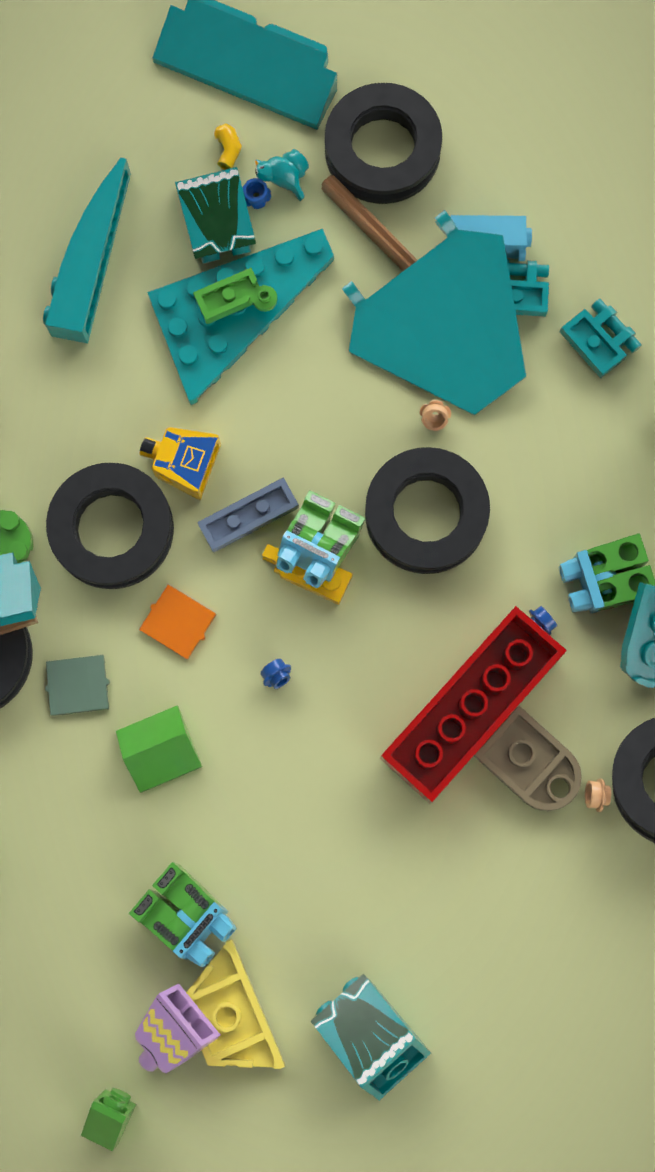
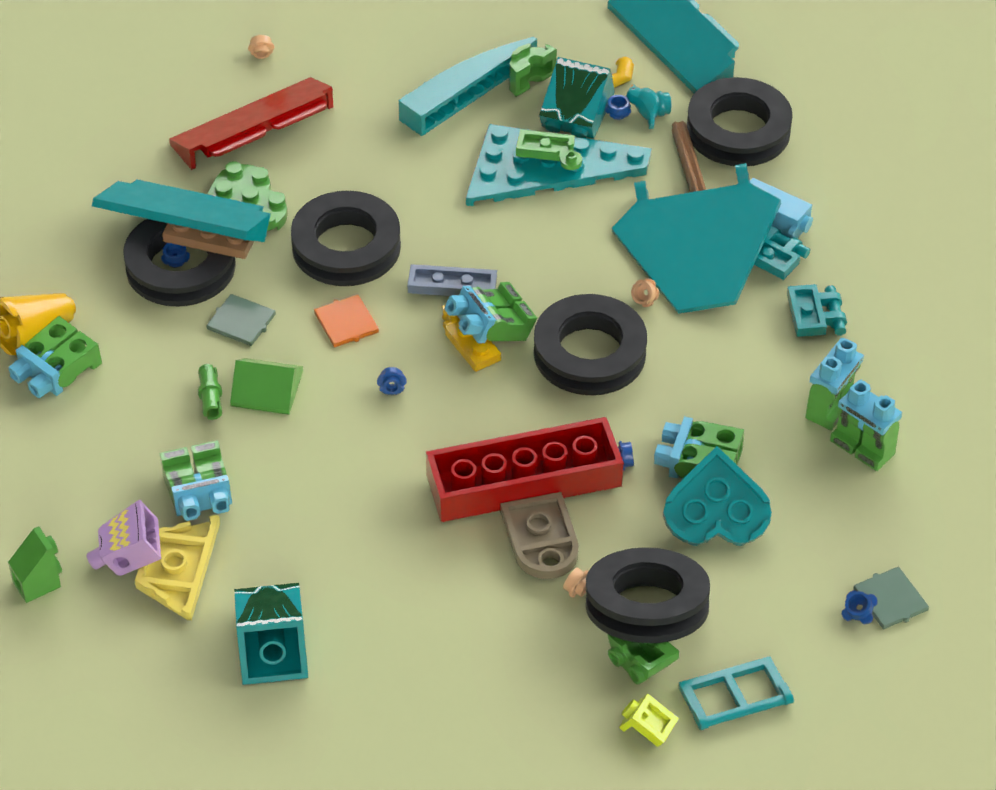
camera: 30 degrees right, 30 degrees down
(114, 796) = (210, 391): none -> bright green pin
(137, 194) = (530, 65): none -> bright green cylinder
(183, 458) = (434, 226): torso -> none

